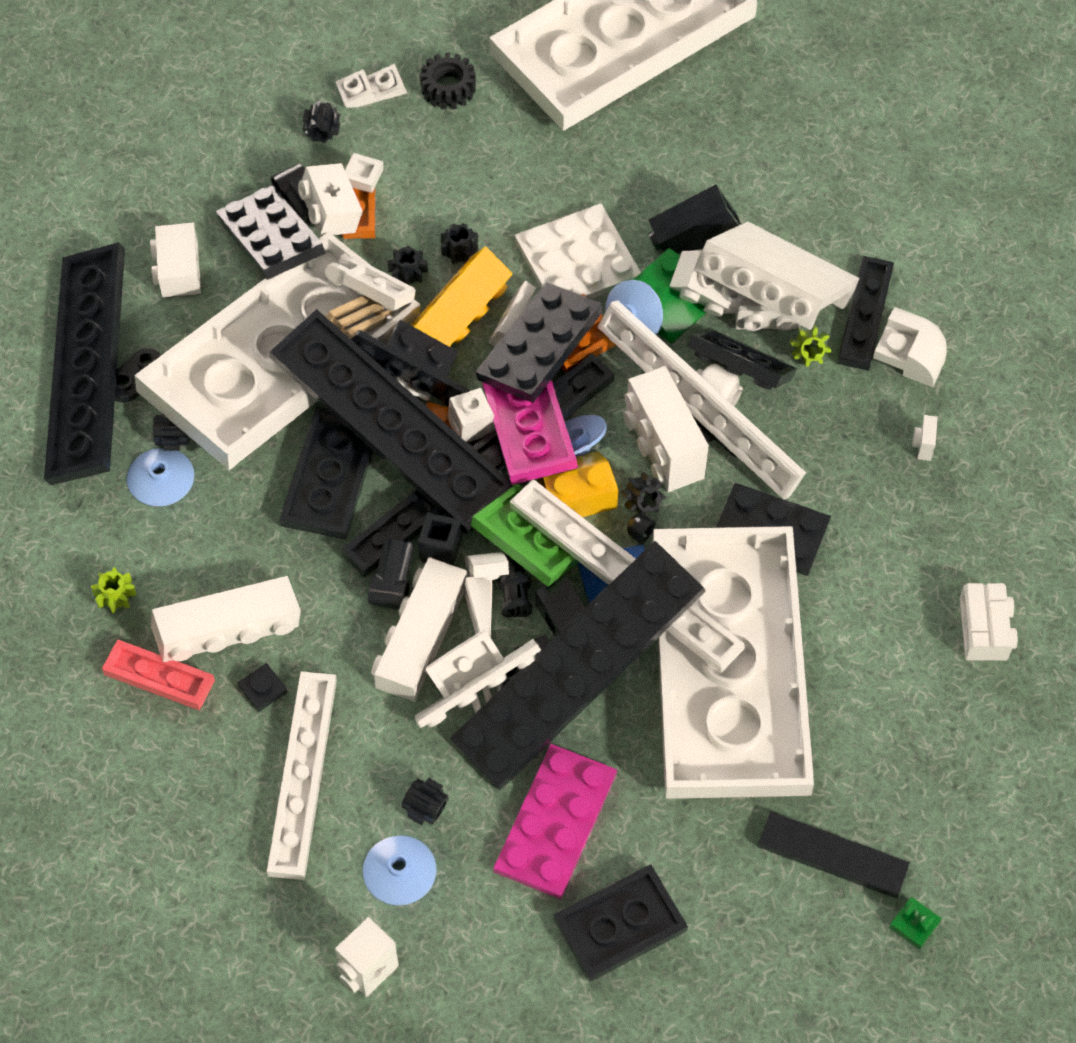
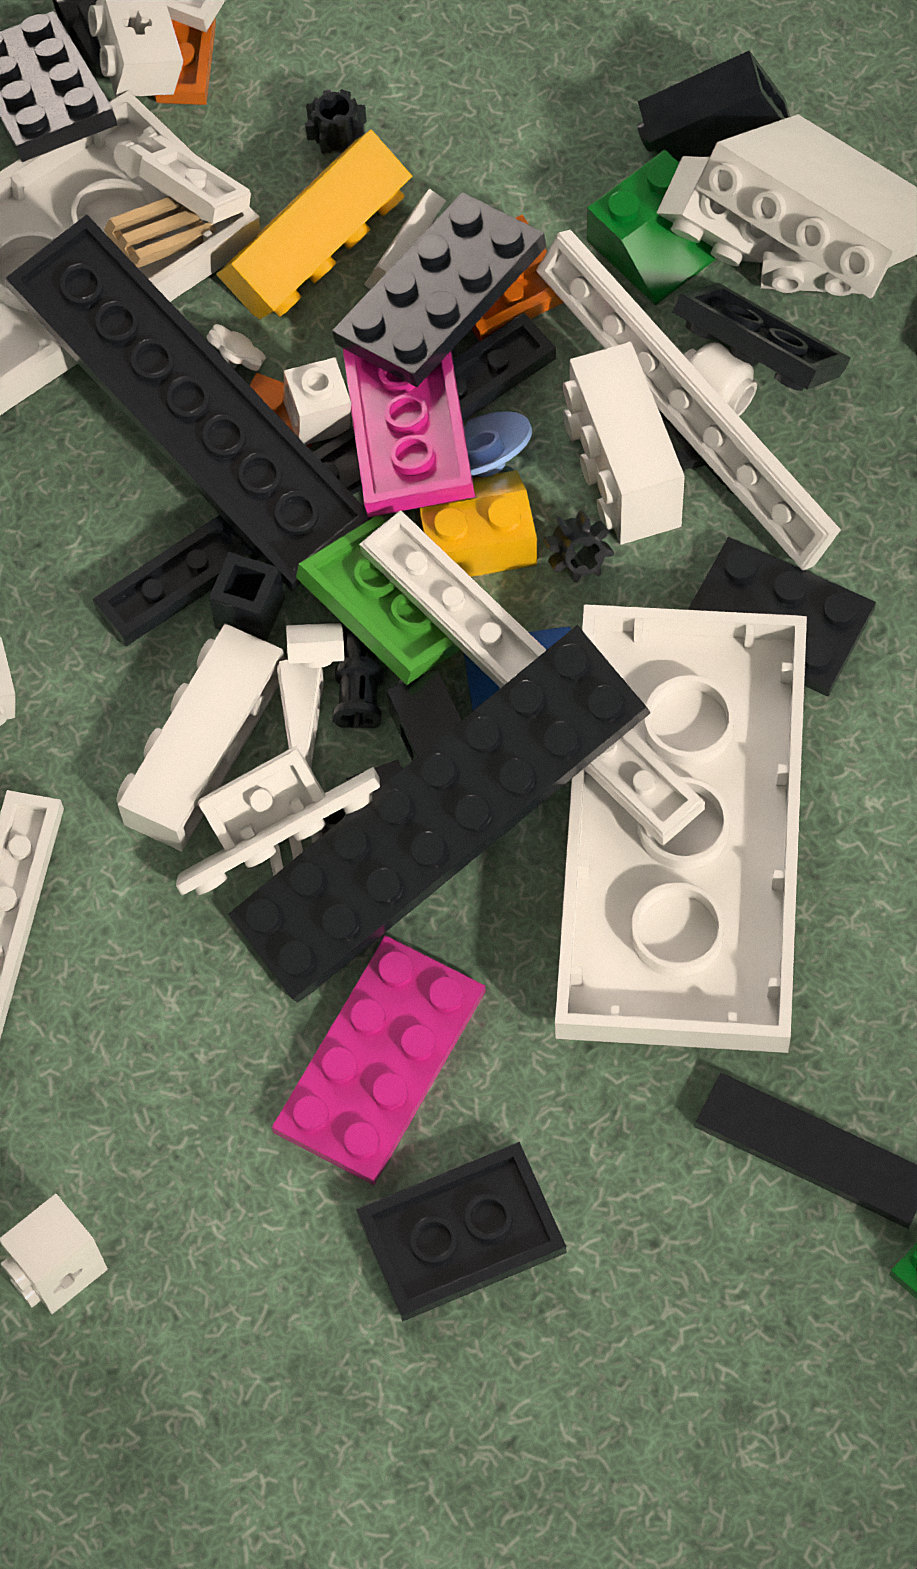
camera: 10 degrees right, 5 degrees up
(326, 478) = (83, 487): black plate -> none
(391, 581) = (163, 658): black piece -> none
(404, 885) = (130, 1142): light blue dish -> none
(407, 265) = (250, 152): black gear -> none
(414, 359) = (237, 303): black bracket -> none
(425, 801) = (176, 1012): black gear -> none
(578, 253) = (524, 150): white plate -> none
(638, 526) = (565, 595): black hinge -> none
(640, 301) = (608, 236): light blue dish -> none
(815, 352) = (883, 333): lime gear -> none

